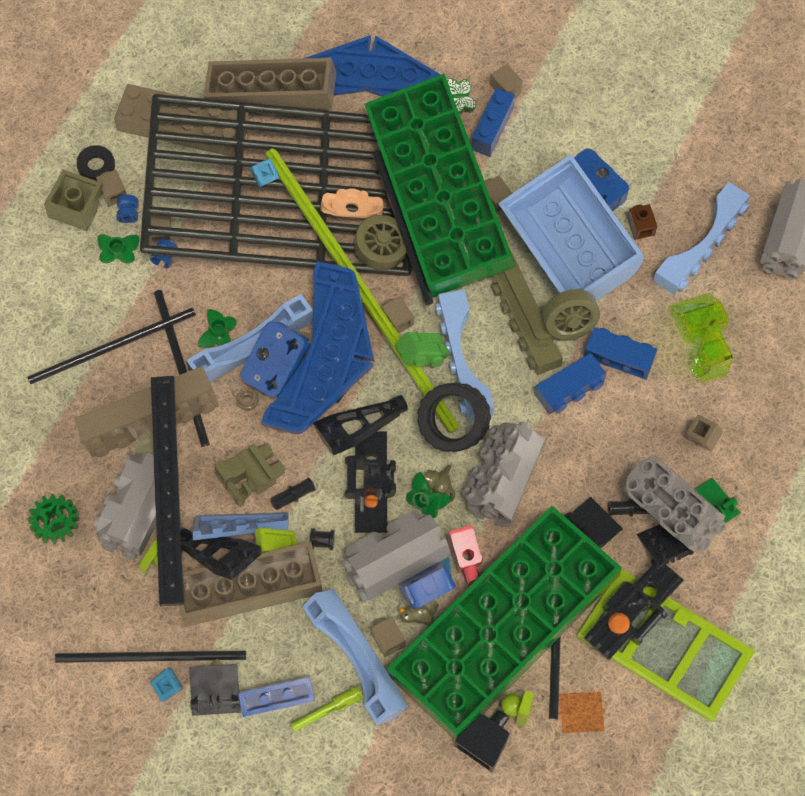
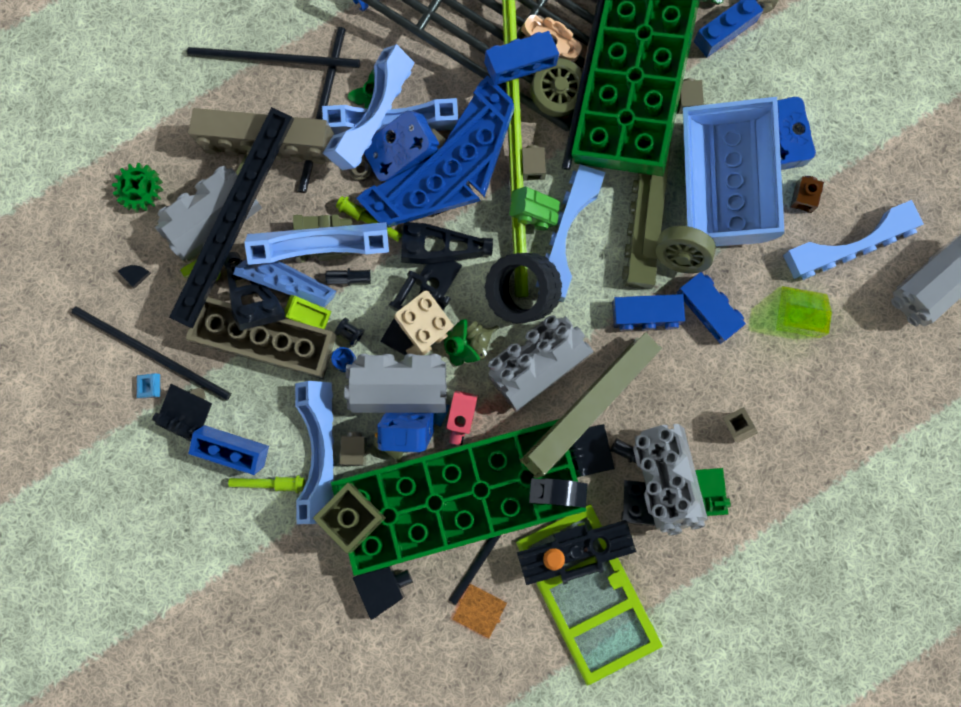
camera: 30 degrees right, 15 degrees up
(94, 596) = (134, 274): none -> black tile
(228, 302) = (390, 73): none -> light blue arch
(267, 436) = (358, 213): none -> lime pin
(274, 458) = (285, 244): none -> light blue arch
(330, 560) = (341, 357): none -> blue wheel
(338, 231) = (521, 57): none -> blue brick
(387, 491) = (423, 323): none -> tan bracket
(424, 681) = (349, 518): none -> olive brick
(519, 707) = (423, 578): lime tile -> none
(571, 480) = (590, 405): none -> olive tile
(589, 559) = (558, 492): none -> black brick
(712, 356) = (793, 357): clear neon green slope -> none

